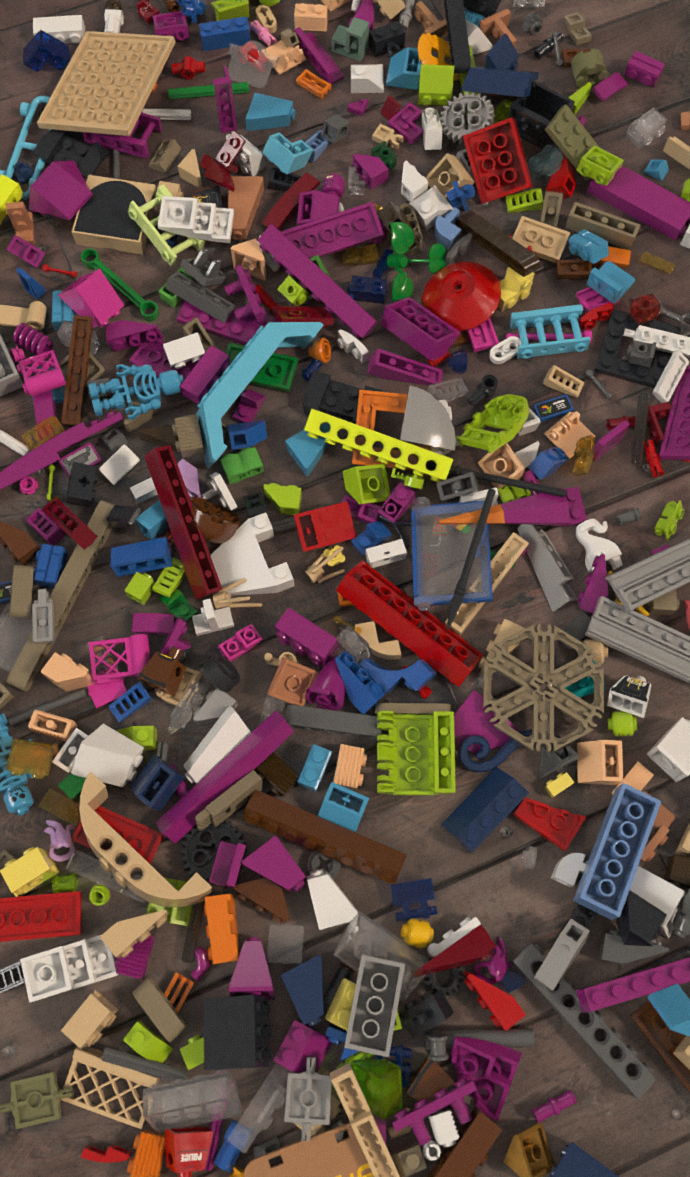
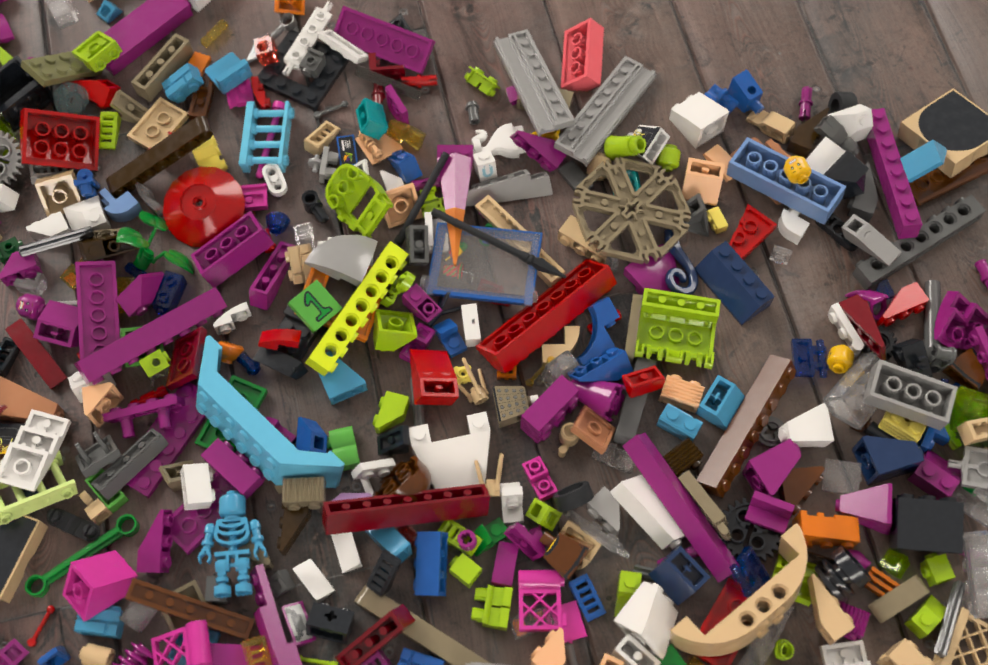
camera: 80 degrees left, 5 degrees down
(111, 621) = (496, 607): none -> lime hips
(144, 270) = (73, 524): none -> black piece
(156, 282) = (96, 509): none -> tan piece
(160, 578) = (464, 534): none -> magenta bush
(170, 853) = (752, 569): none -> clear blue plate
(173, 945) = (842, 574): none -> black wheel
(196, 1008) = (895, 563): none -> clear neon green slope
(201, 648) = (543, 514): none -> lime brick
(309, 603) = (511, 403): none -> dark tan torso
(335, 386) = (273, 338): none -> red slope
(350, 723) = (643, 381): none -> red slope
(356, 263) = (140, 293): none -> magenta slope
(368, 405) = (315, 306): none -> bright green tile
(395, 186) = (56, 241): none -> axle
(422, 380) = (297, 256): none -> tan brick
(532, 387) = (327, 158): none -> light grey hips
(565, 536) = (485, 165): none -> white brick
(591, 419) = (371, 119): none -> teal brick
(618, 668) = (623, 146): none -> lime plant
(624, 856) = (797, 170): none -> yellow head

